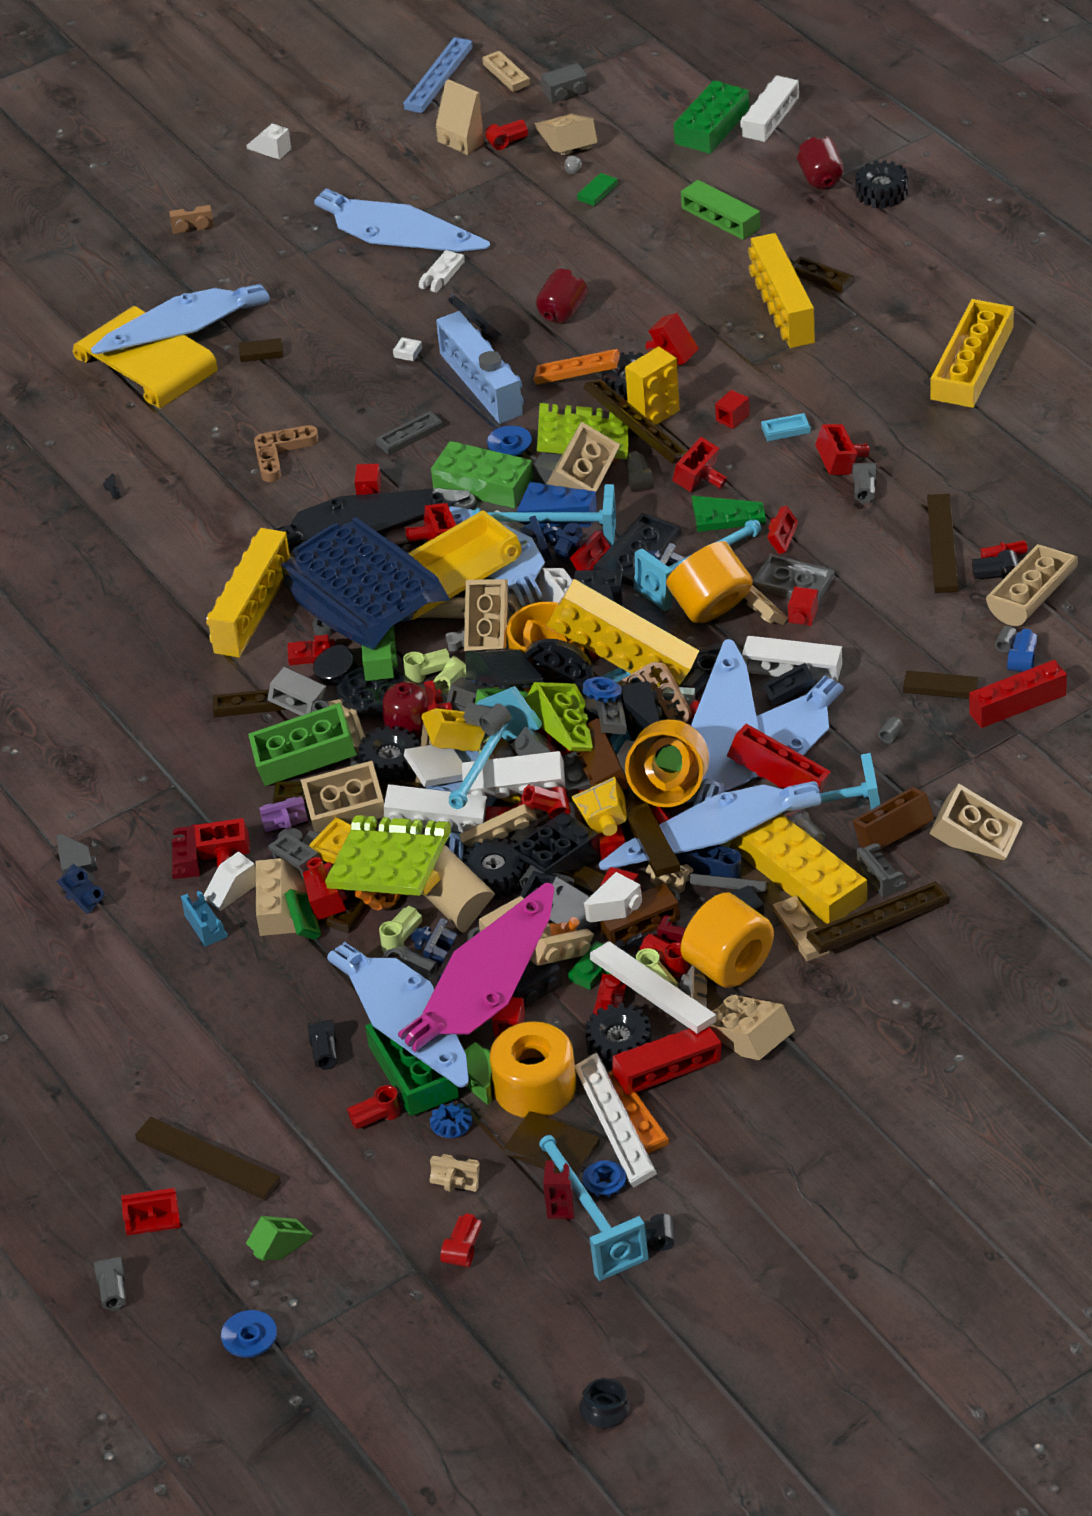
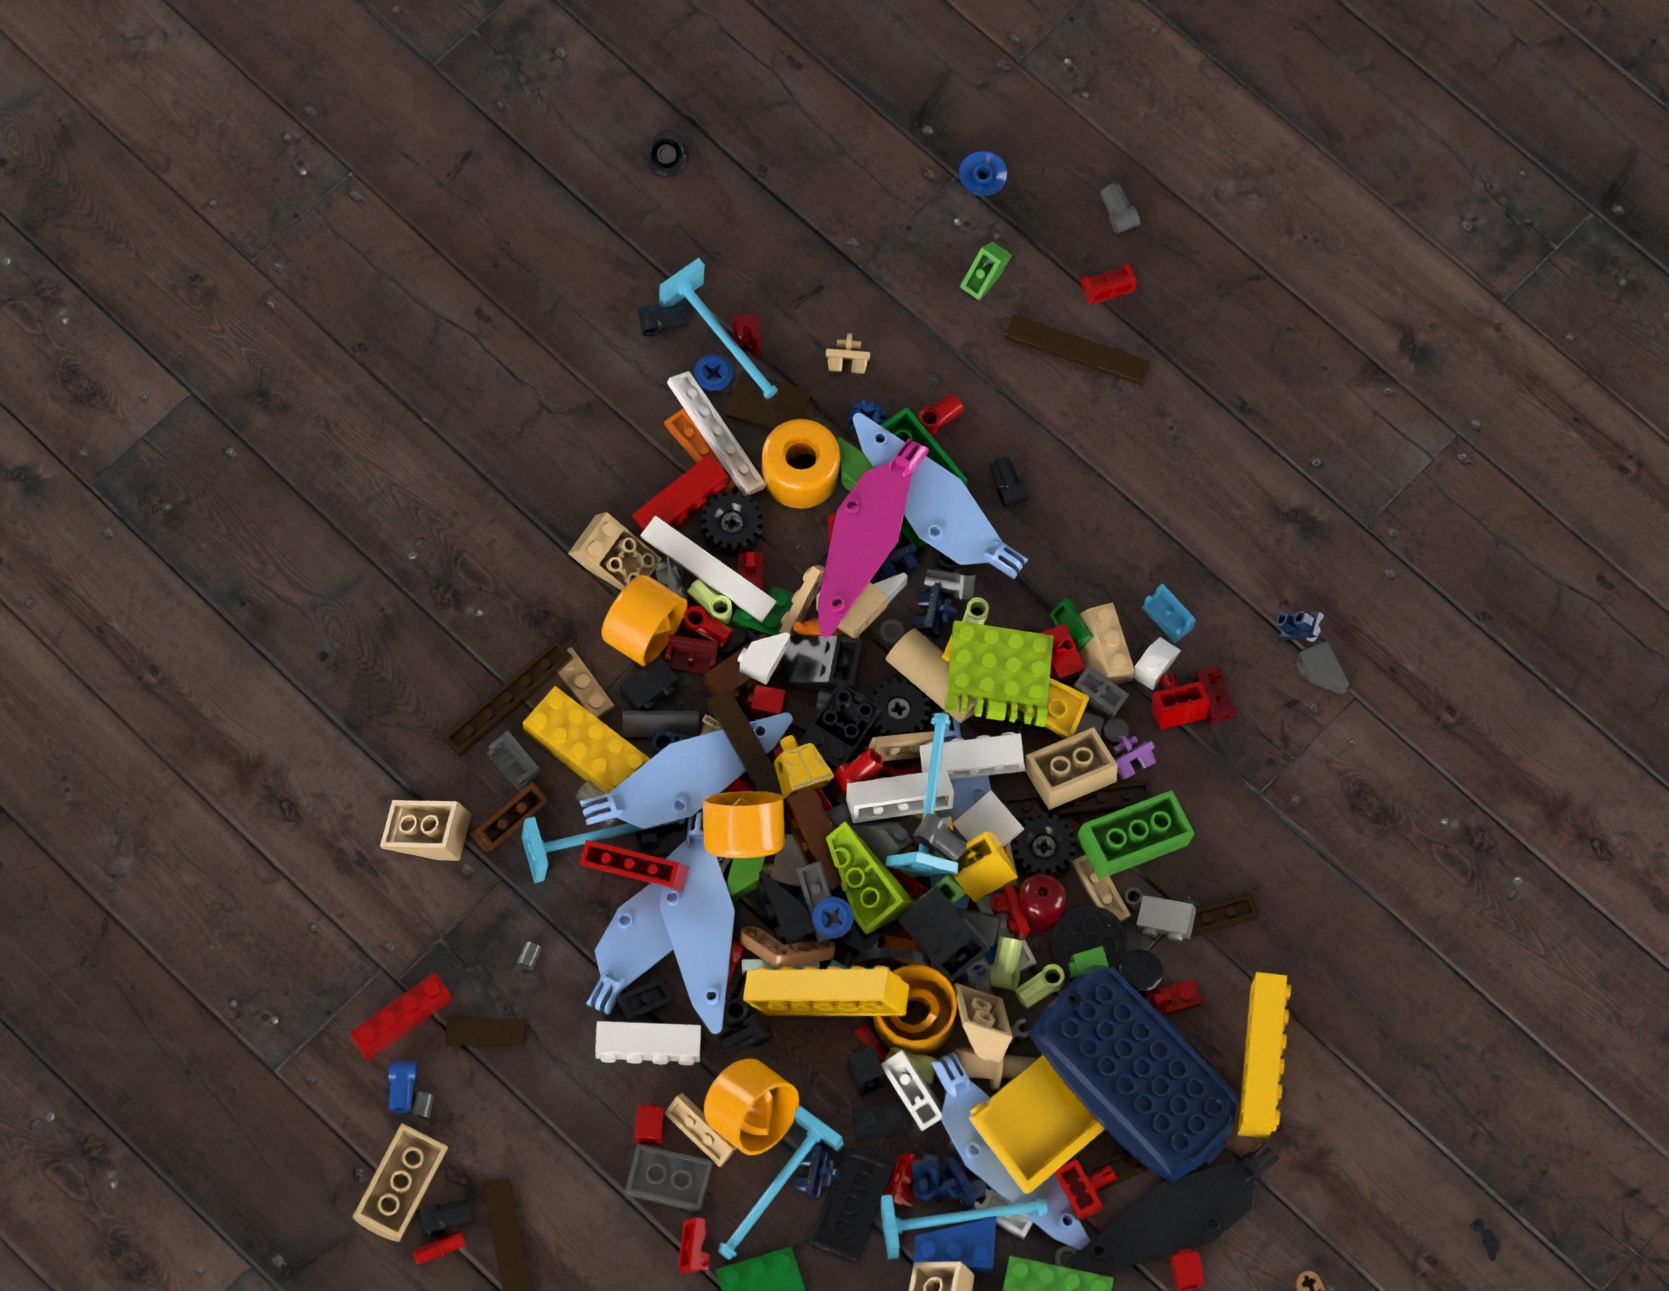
camera: 160 degrees right, 25 degrees up
(460, 1246) = (824, 283): red piece -> none

